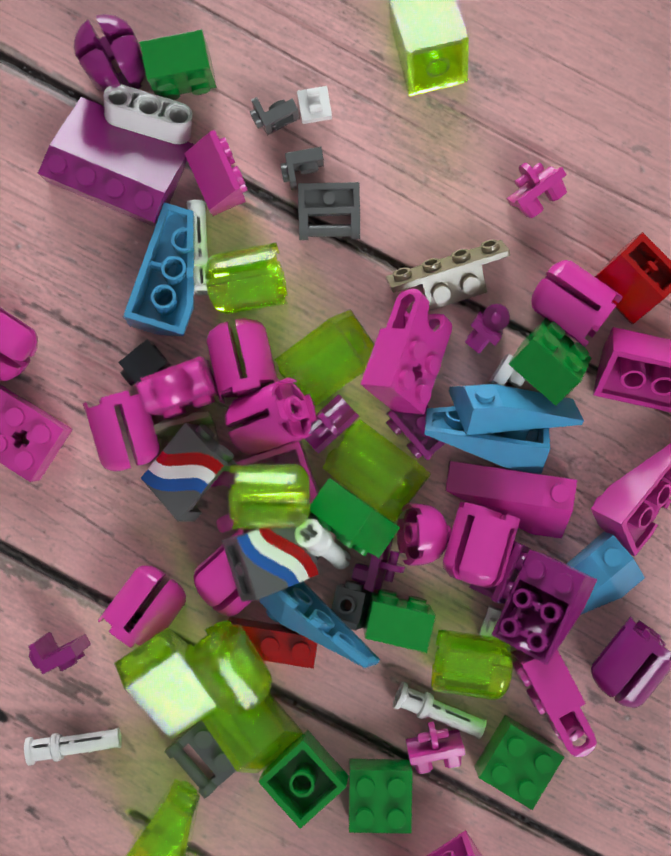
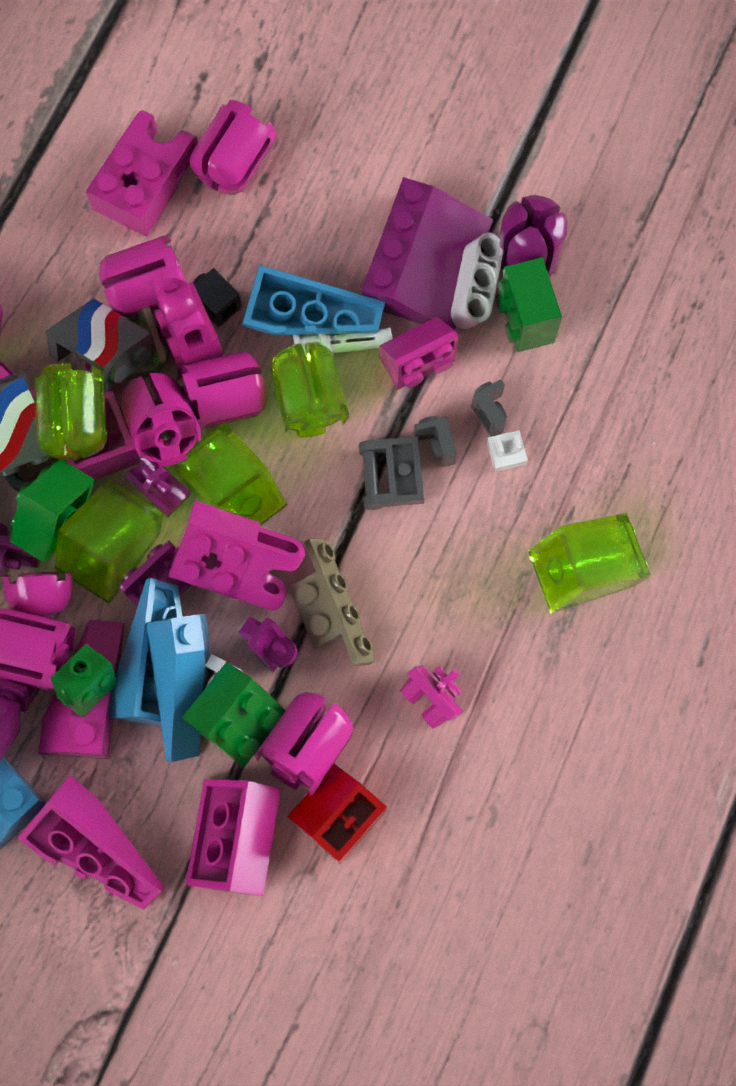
camera: 85 degrees right, 15 degrees down
(320, 543) = (23, 471): white pin -> none
(526, 495) = (84, 680): none -> green head

